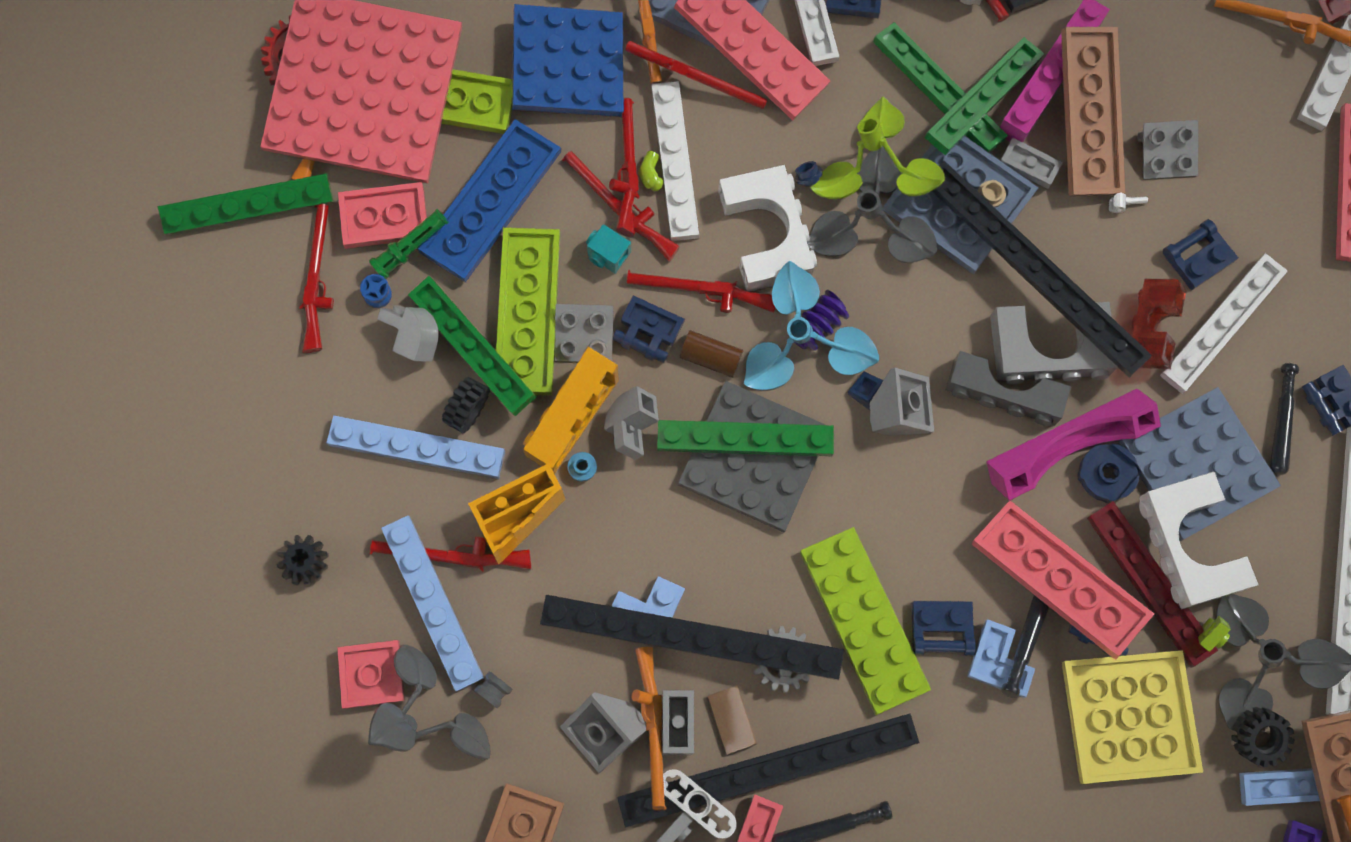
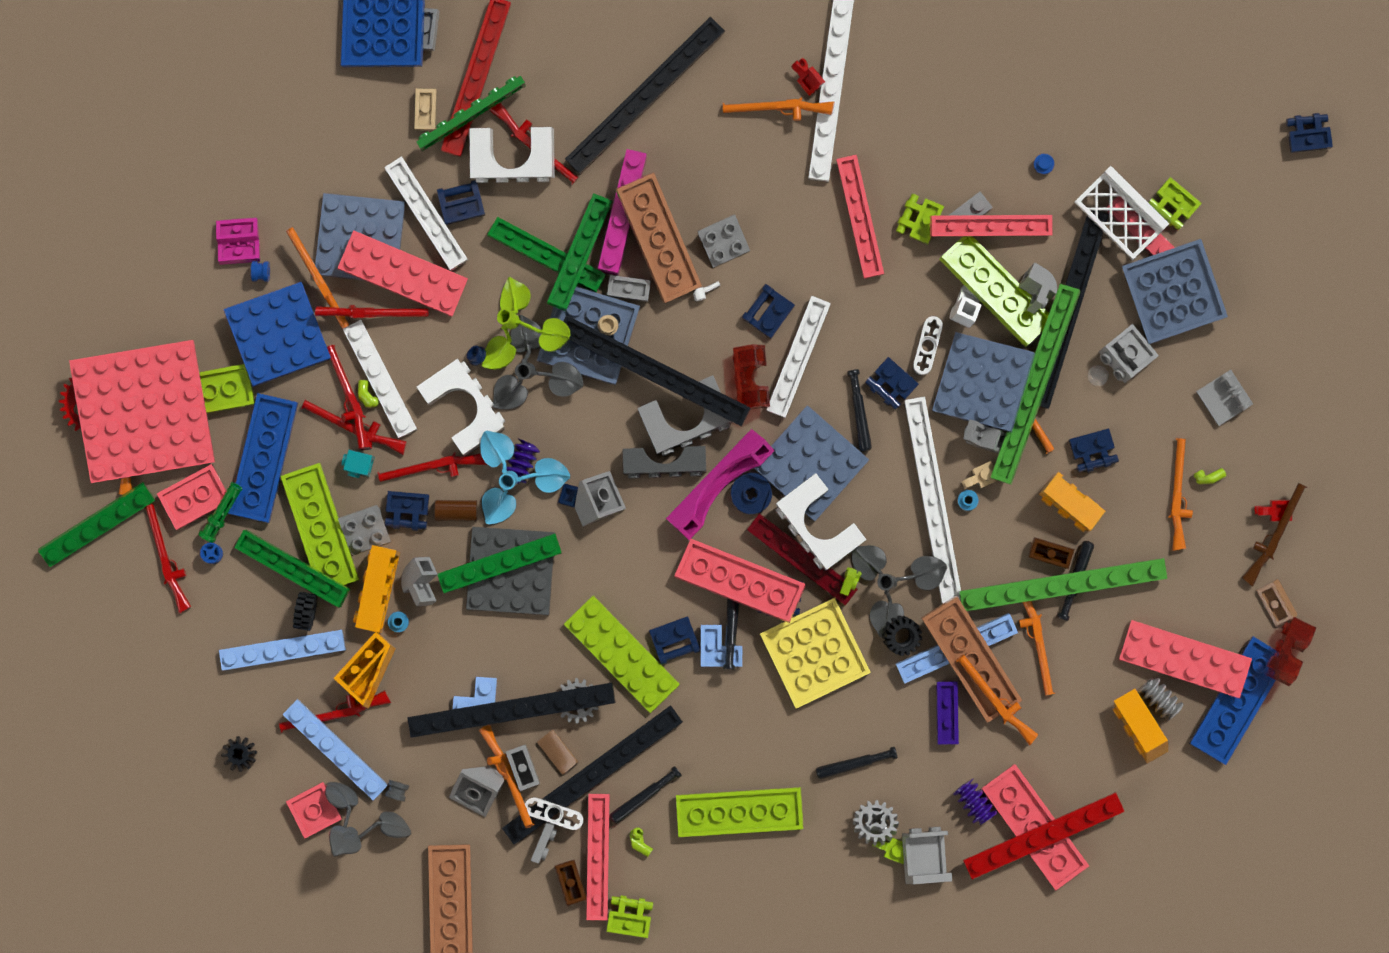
camera: 15 degrees left, 10 degrees up
(416, 332) = (252, 574): light grey brick -> none

